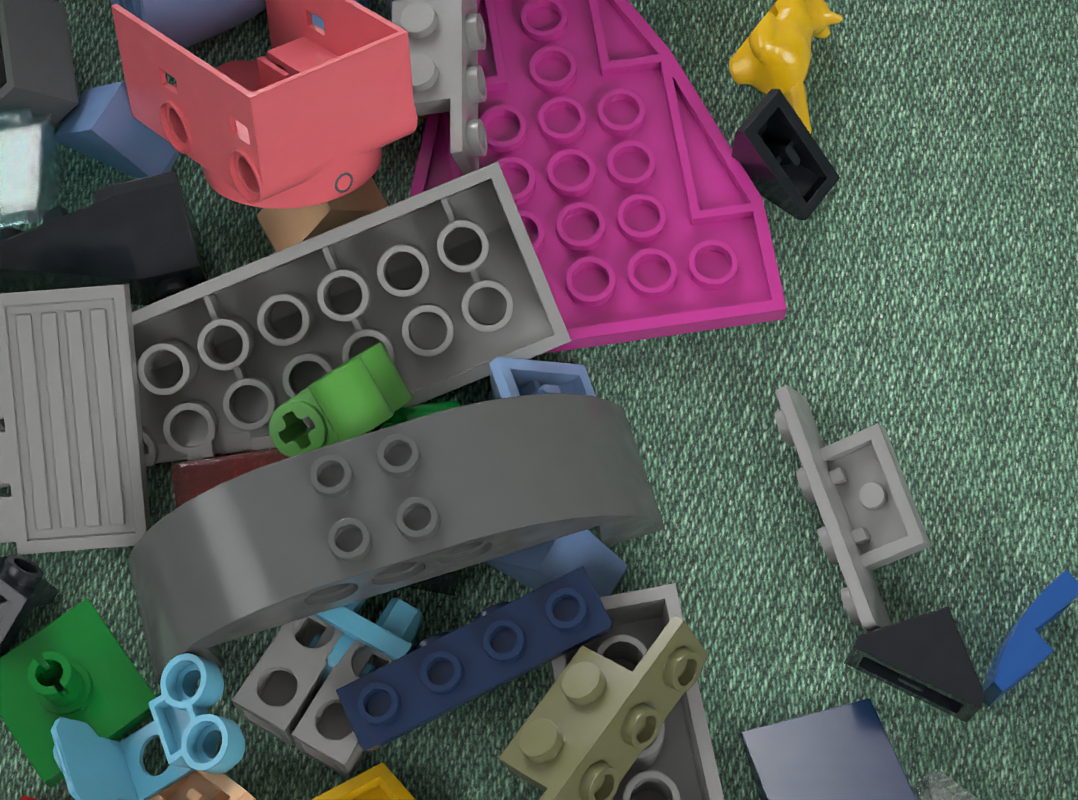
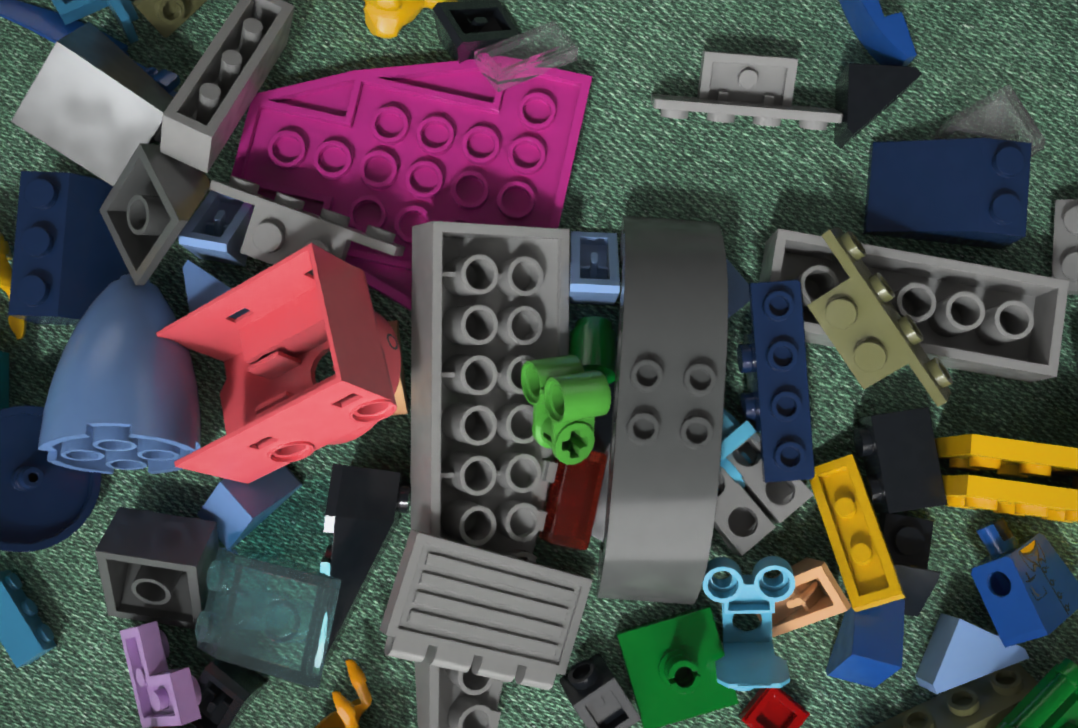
camera: 75 degrees left, 15 degrees up
(776, 225) = (525, 56): none -> clear tile

